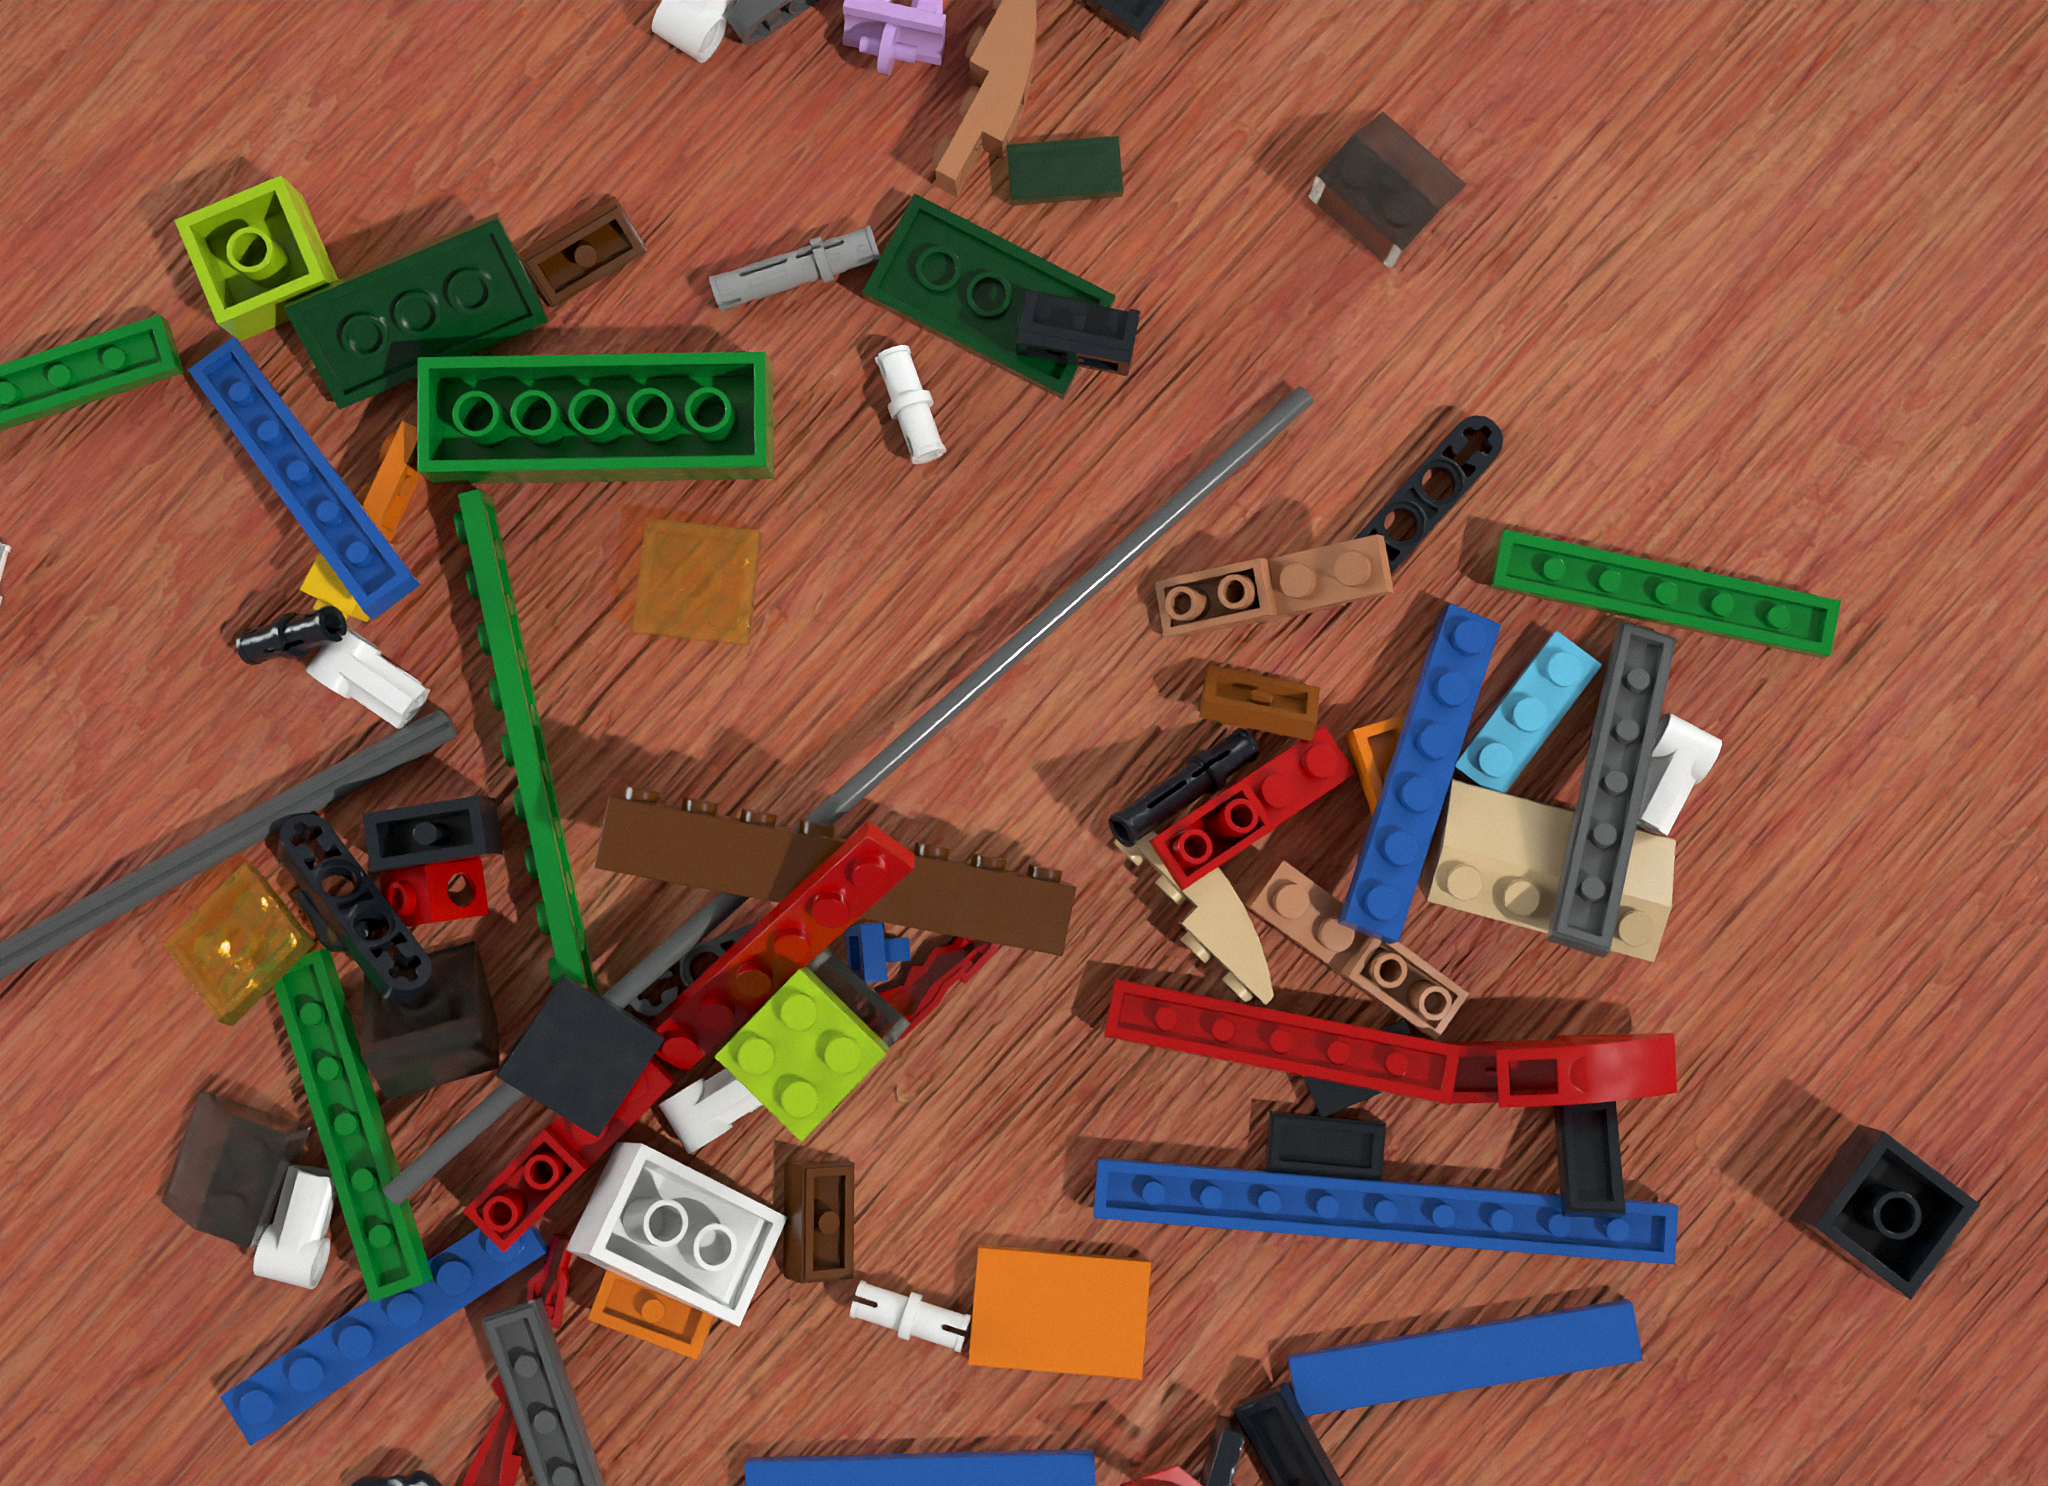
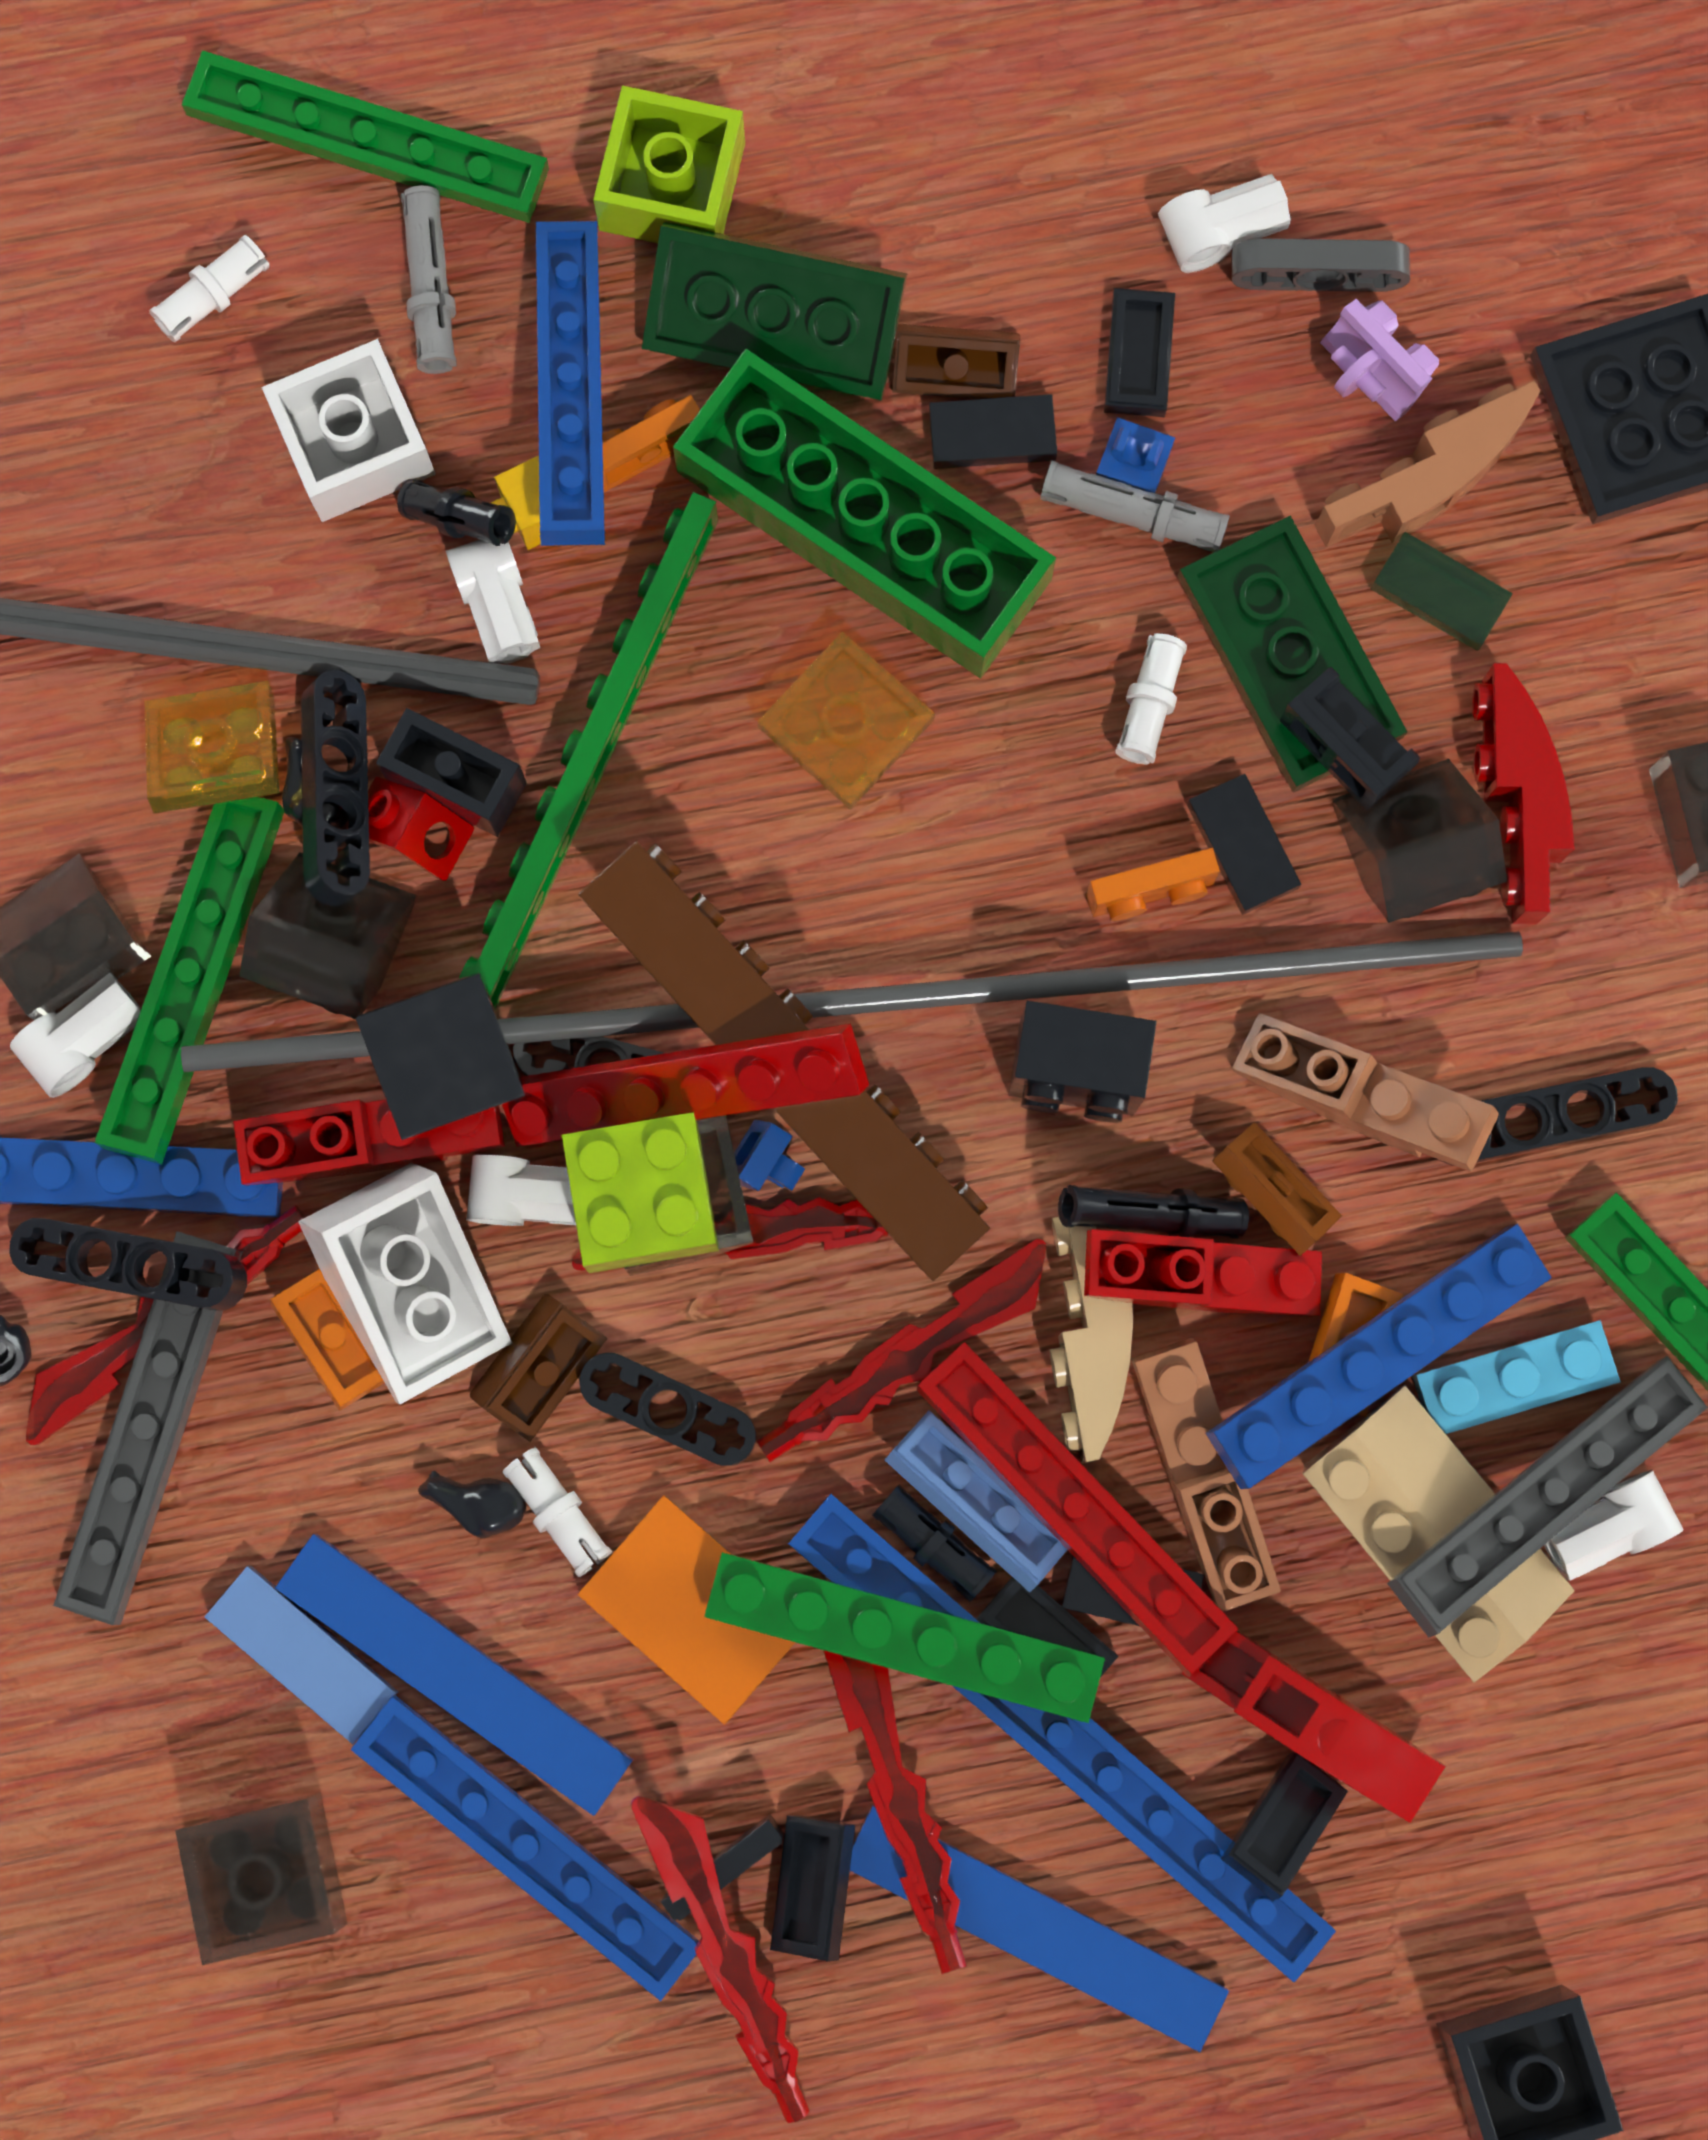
camera: 35 degrees right, 5 degrees down
(154, 489) = (430, 301): none -> light grey pin
(162, 632) = (348, 430): none -> white brick
(464, 1374) = (128, 1263): none -> black beam
(648, 285) = (992, 431): none -> black tile
(714, 147) = (1139, 352): none -> black tile
(767, 228) = (1135, 455): none -> blue tile
(851, 1353) = (480, 1506): none -> black animal
(891, 1178) = (617, 1404): none -> black beam
(997, 563) = (1178, 878): none -> orange plate
(1054, 464) = (1244, 844): none -> black tile
(1054, 713) = (1081, 1061): none -> black brick
(1080, 1017) = (907, 1356): none -> red sword
(1184, 369) = (1423, 842): none -> clear smoke slope
(1197, 1138) = (934, 1543): none -> black pin
(1204, 1086) = (976, 1500): none -> medium blue tile
(1219, 262) = (1525, 770): none -> red slope
(1225, 1225) = (905, 1637): none -> green plate
(1300, 1337) = (900, 1804): none -> red sword

